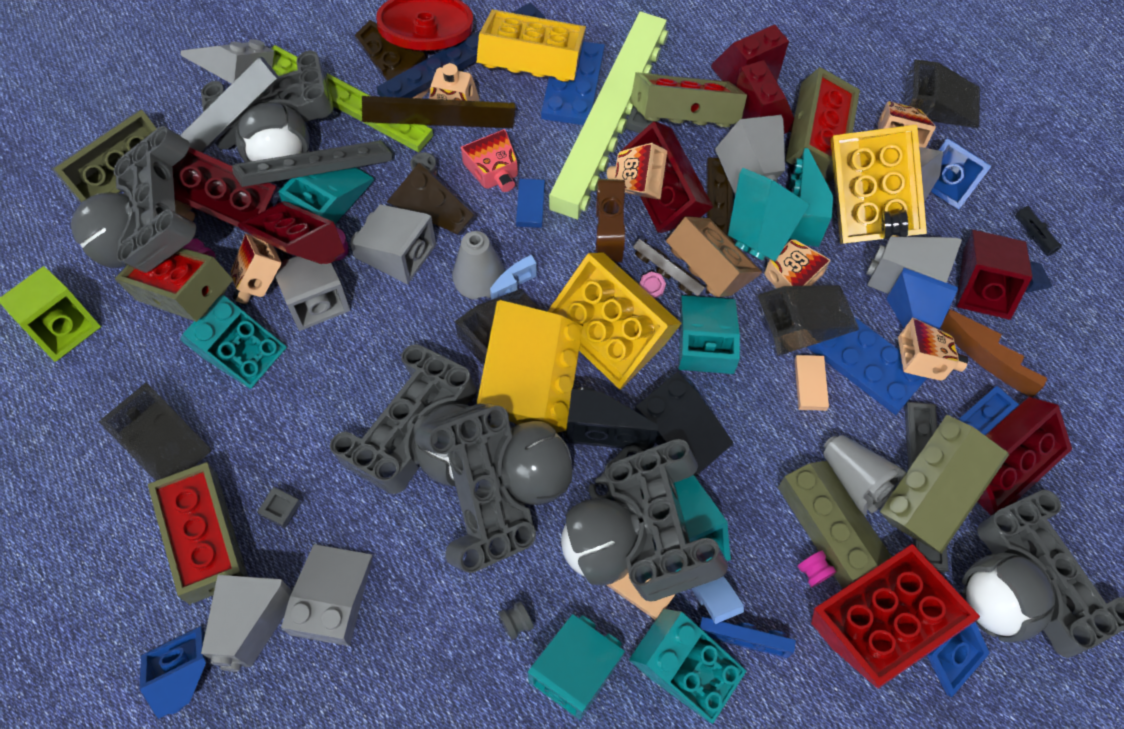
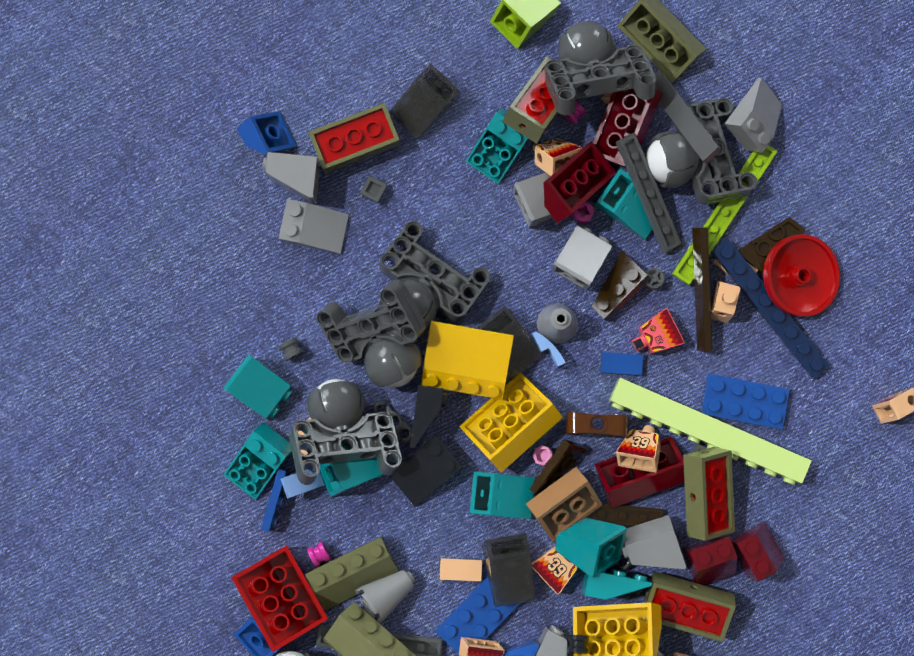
camera: 90 degrees right, 20 degrees up
(530, 45) = (772, 365): yellow slope -> none

